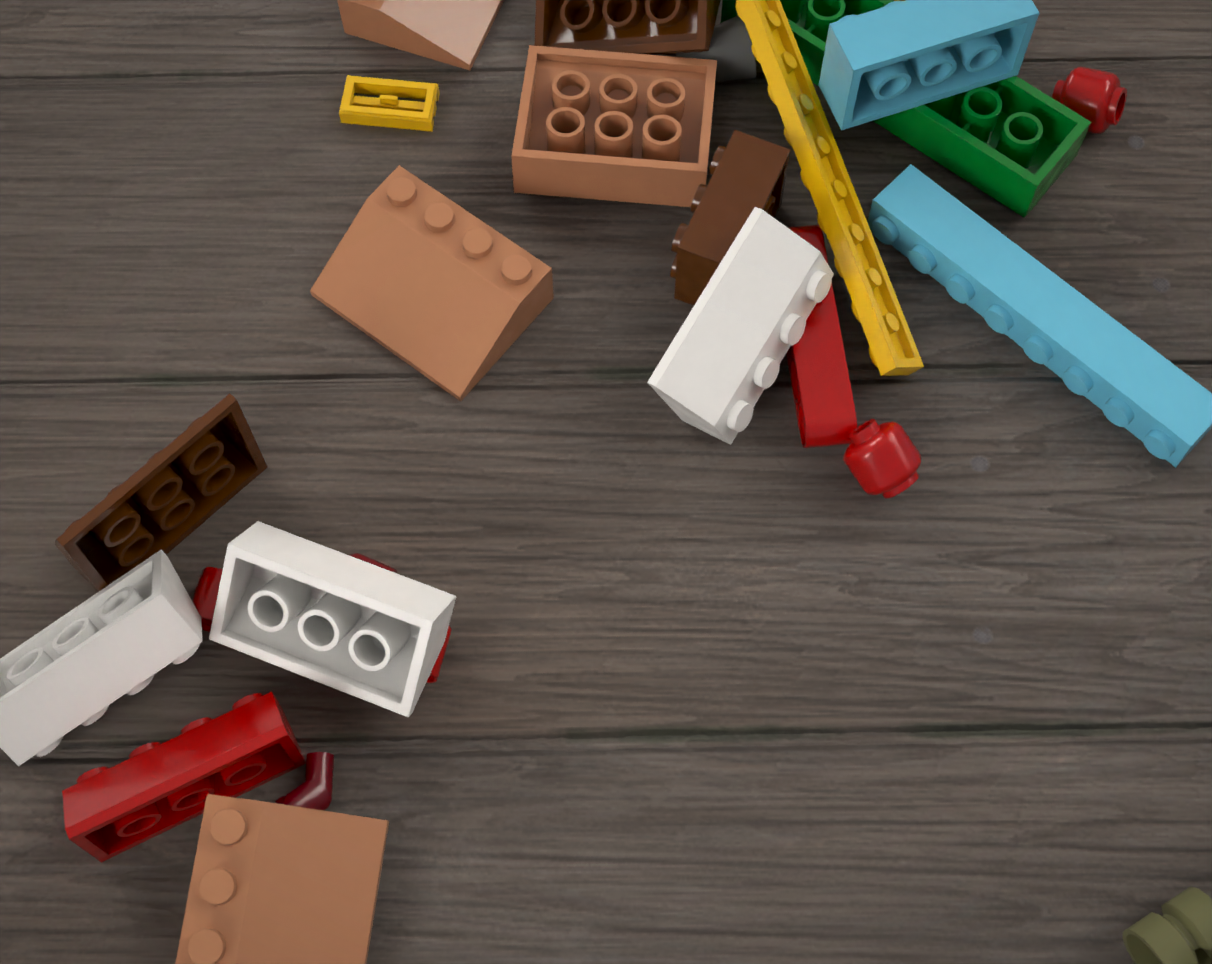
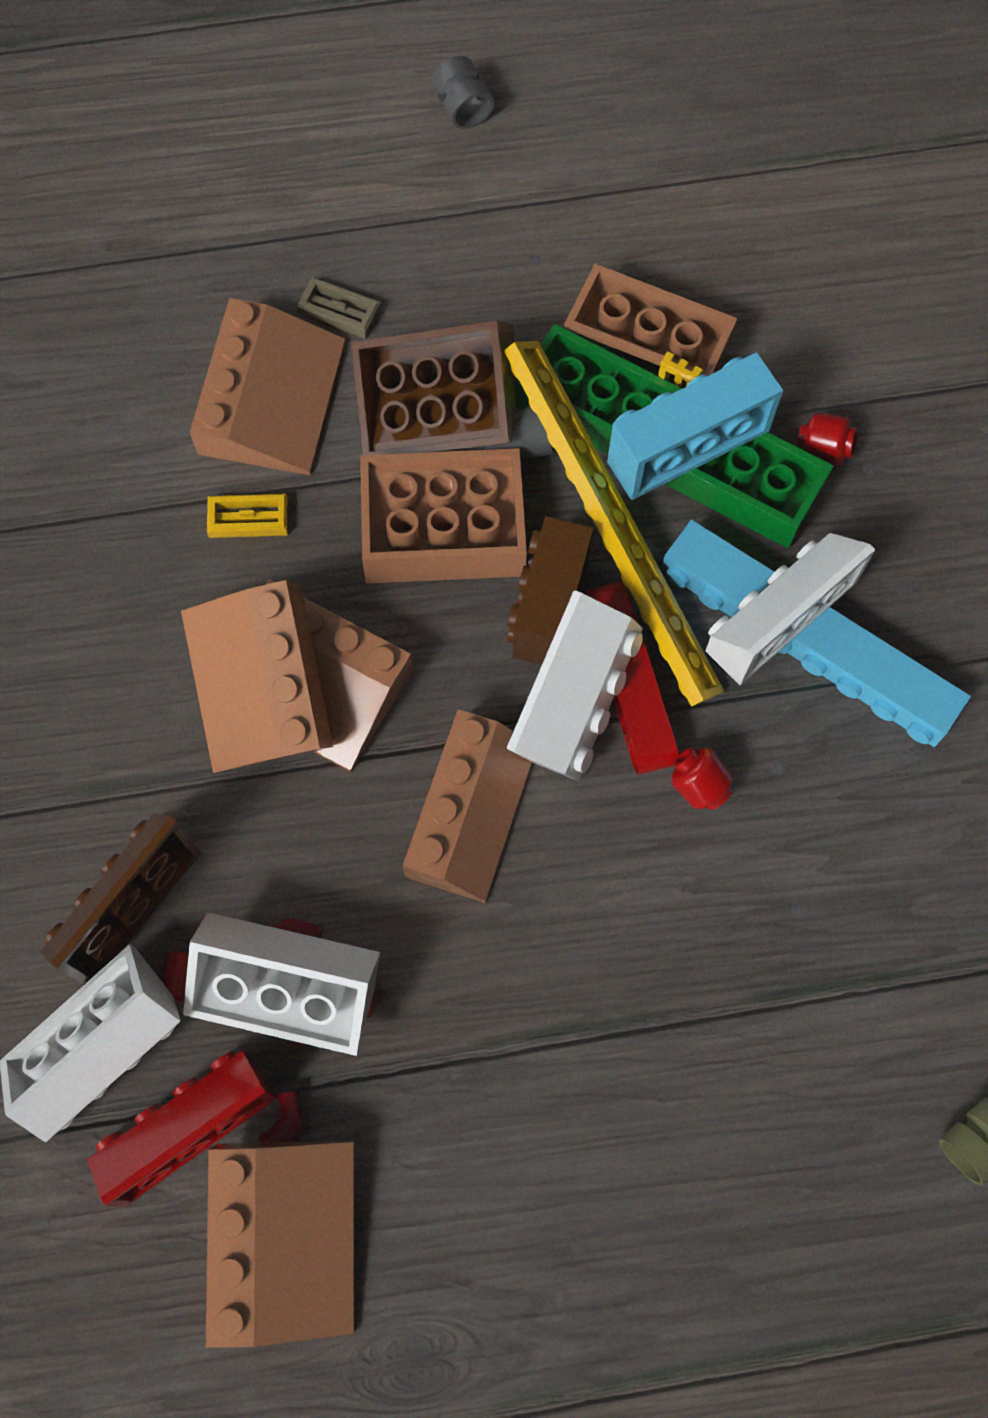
camera: 10 degrees left, 5 degrees up
(367, 269) = (257, 676): none -> nougat slope
(591, 457) = (468, 809): none -> nougat slope
(1014, 267) = (787, 605): none -> white slope

